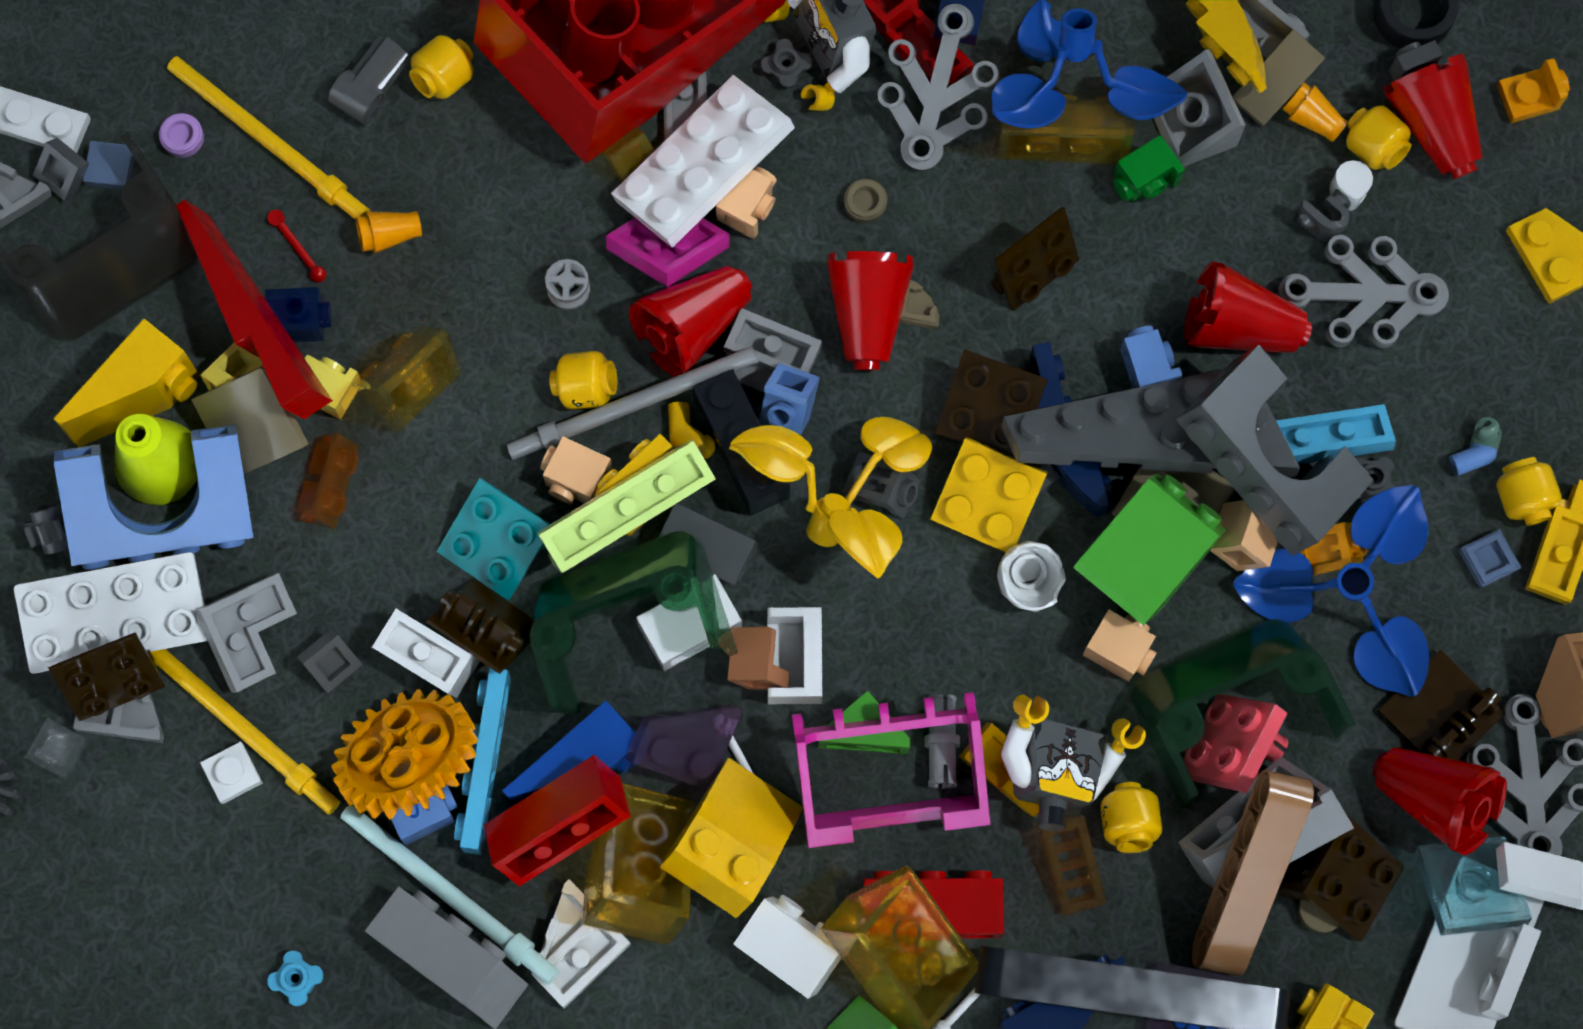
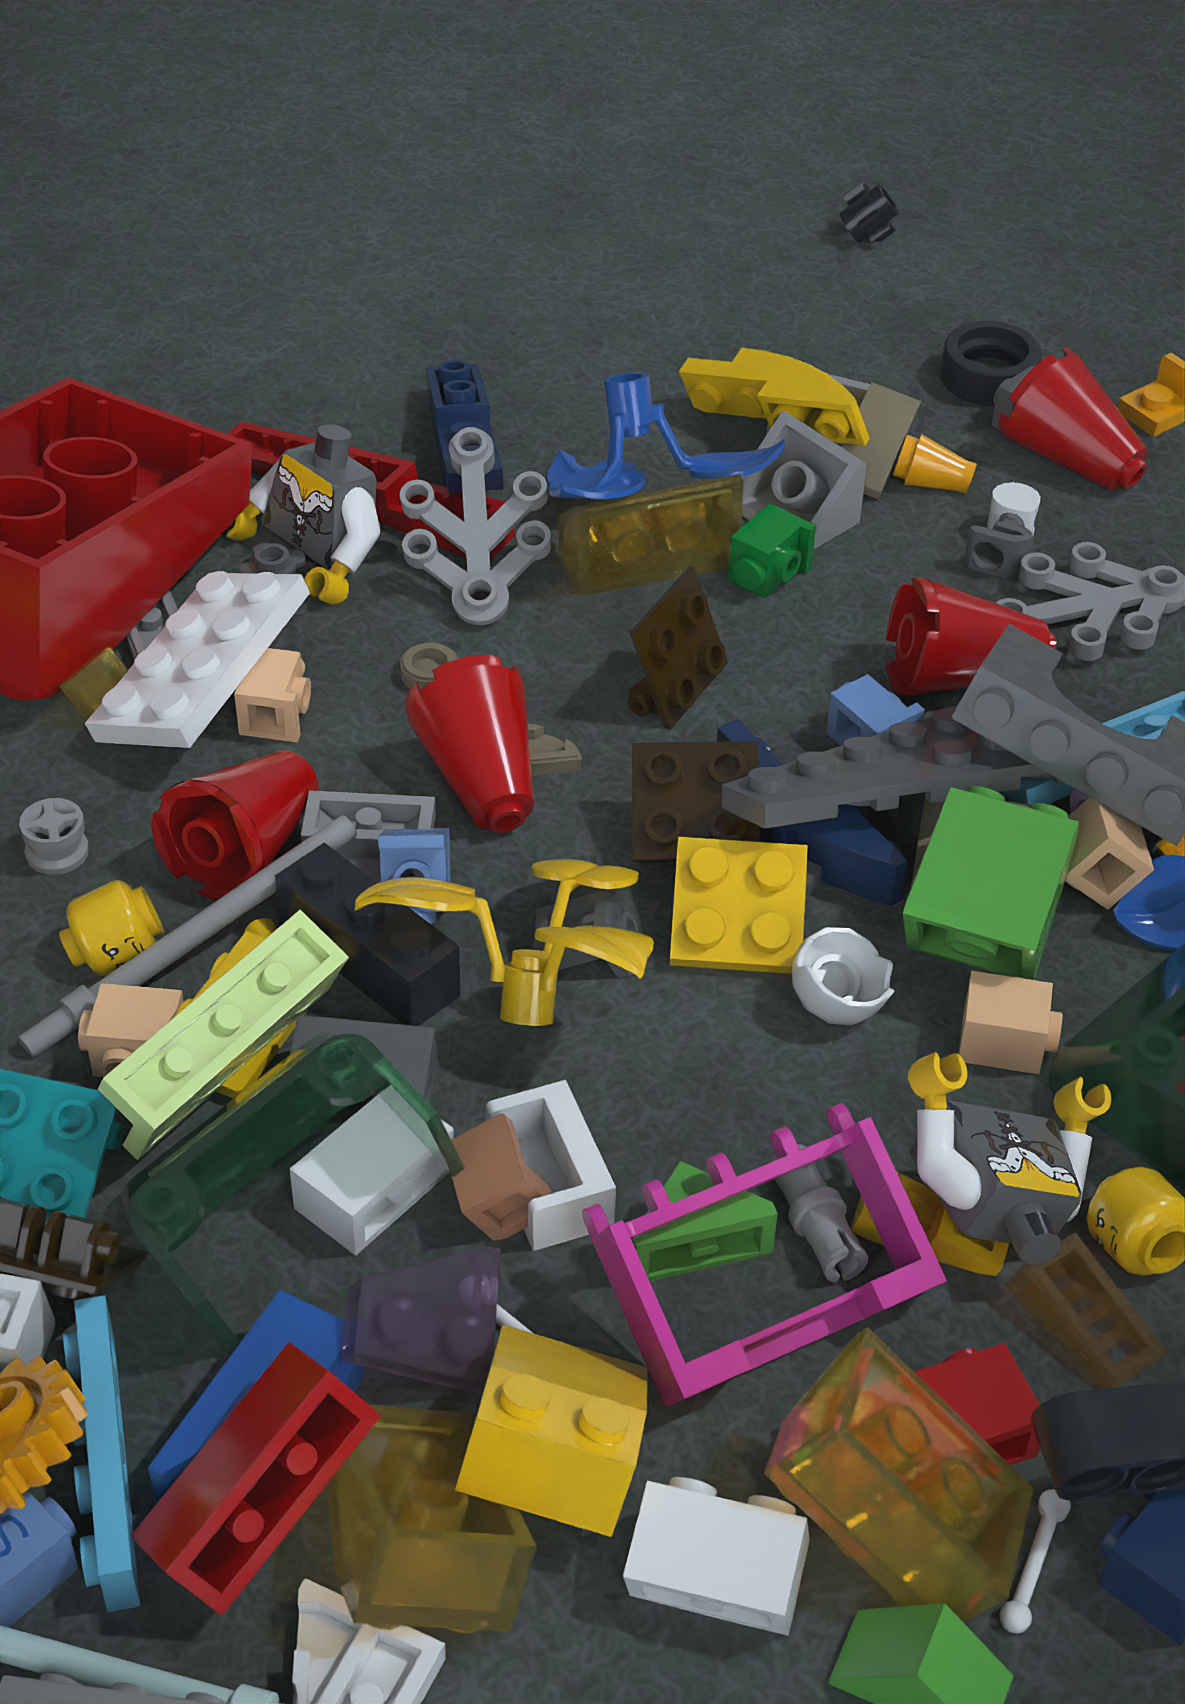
camera: 20 degrees left, 30 degrees down
(657, 259) = (150, 768): dark pink plate -> none
(1378, 137) = (1022, 459): yellow head -> none

